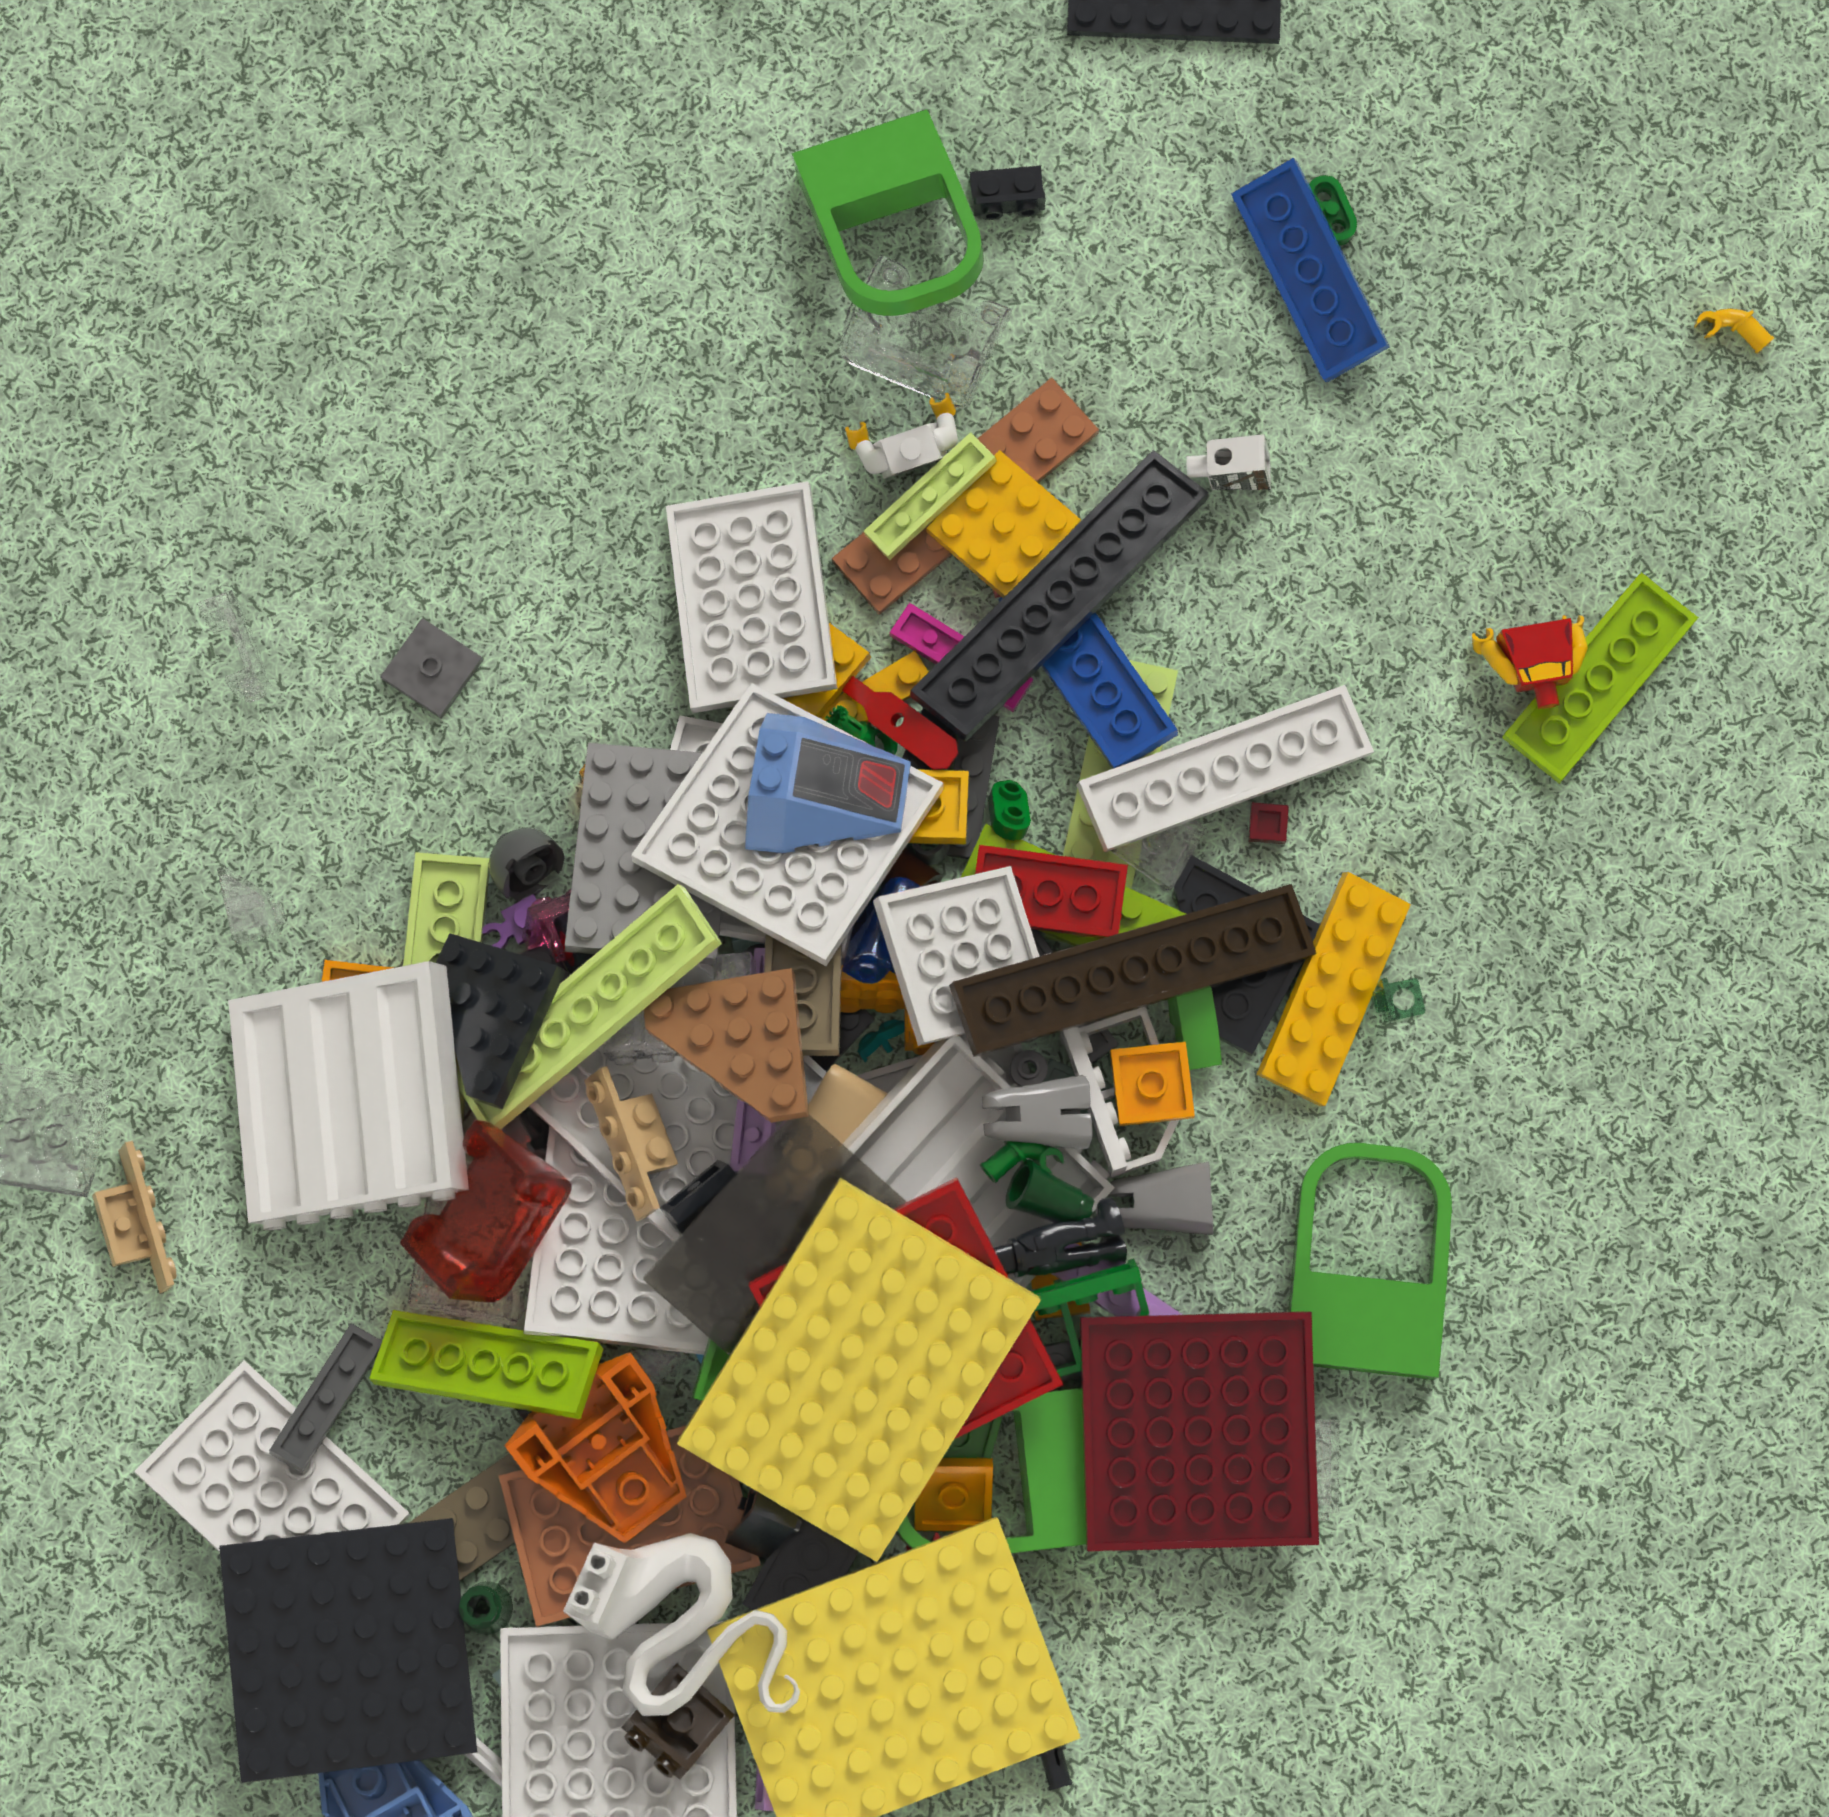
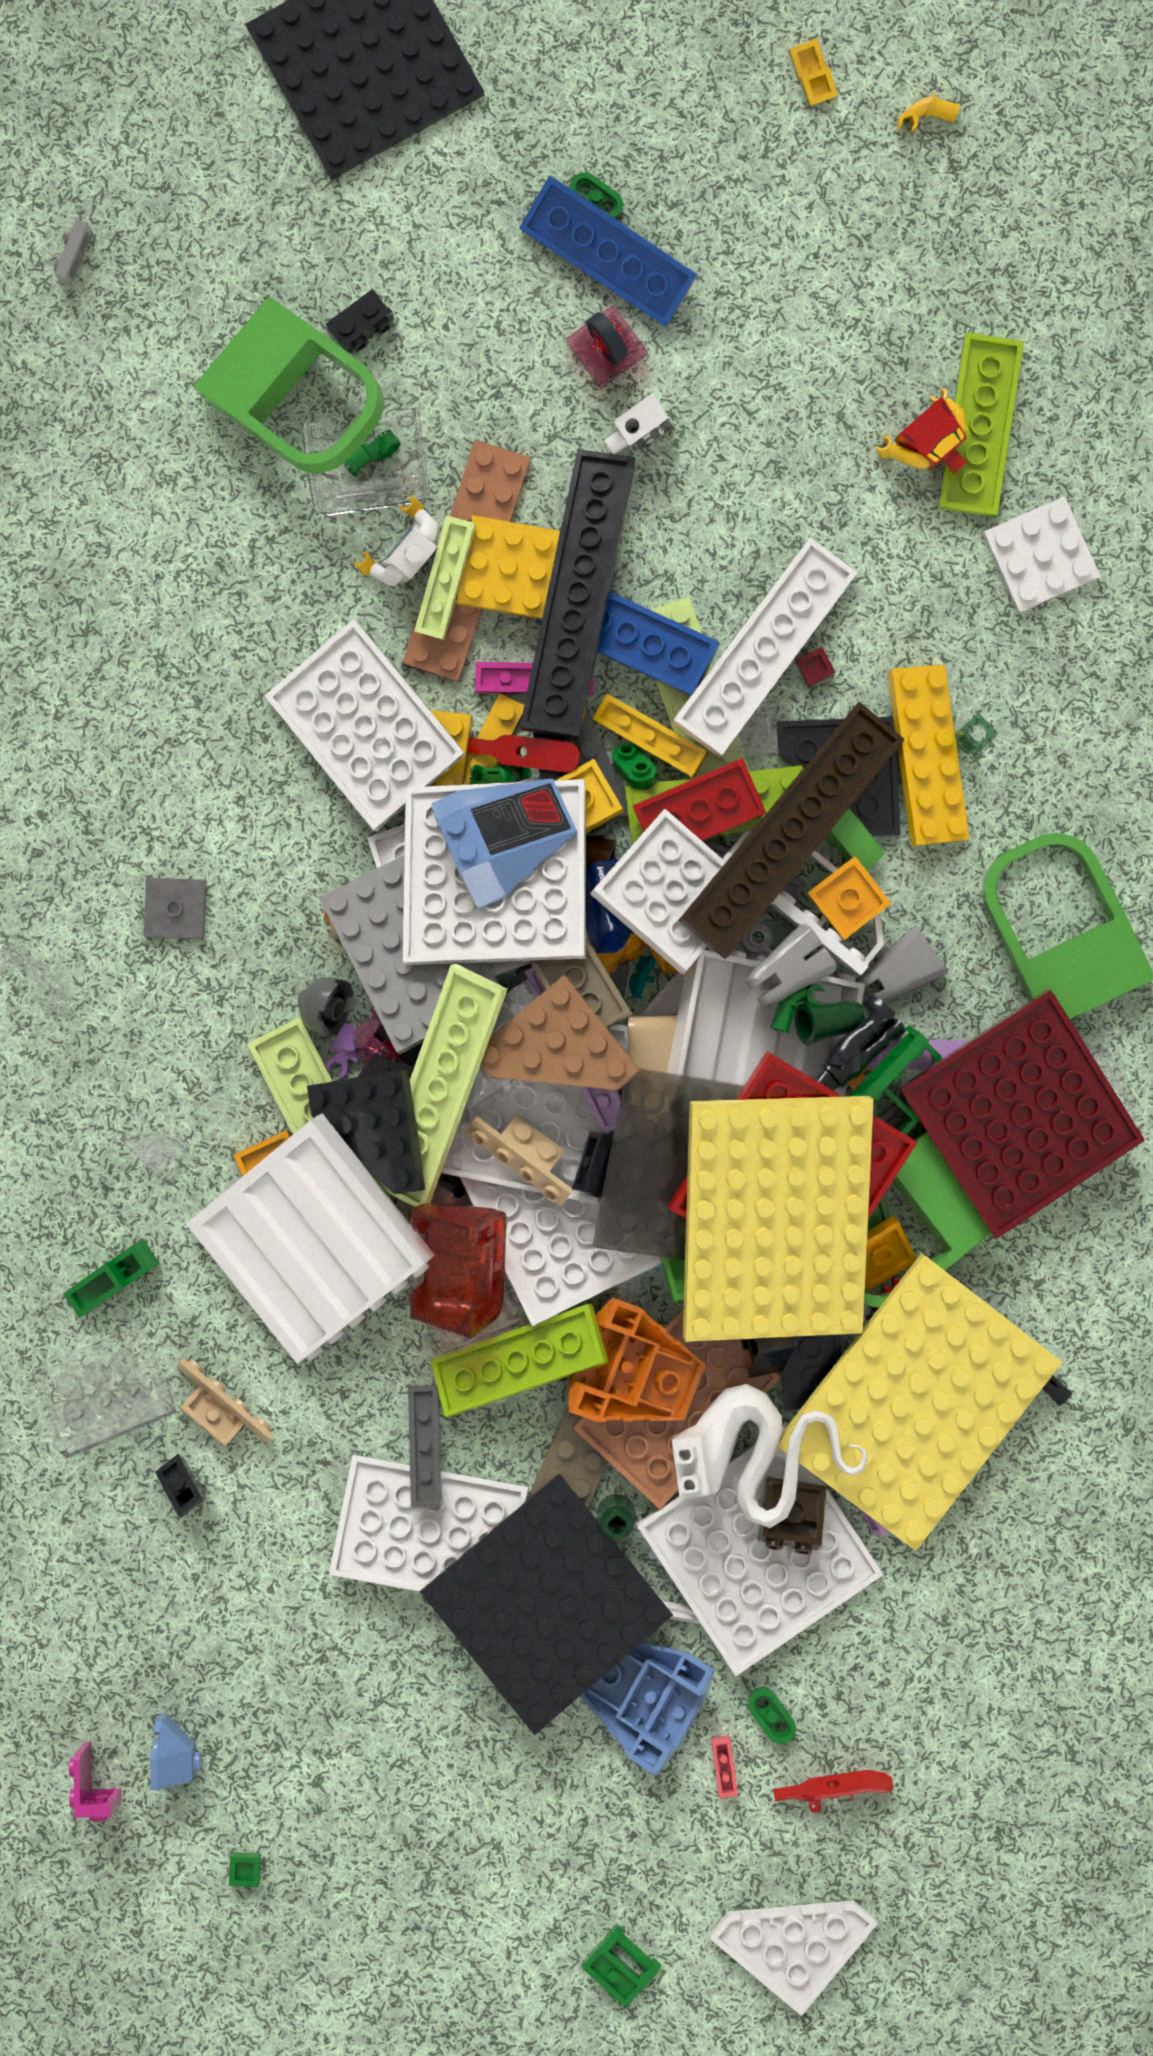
camera: 30 degrees left, 10 degrees up
(40, 1277) = (181, 1485): none -> black slope
(113, 1012) = (111, 1278): none -> green slope
(947, 327) = (381, 448): none -> green connector
(1046, 788) = (650, 735): none -> yellow plate
(1249, 364) = (606, 346): none -> clear pink plate
(1585, 852) = (1041, 554): none -> white plate
(1637, 217) = (812, 72): none -> yellow slope

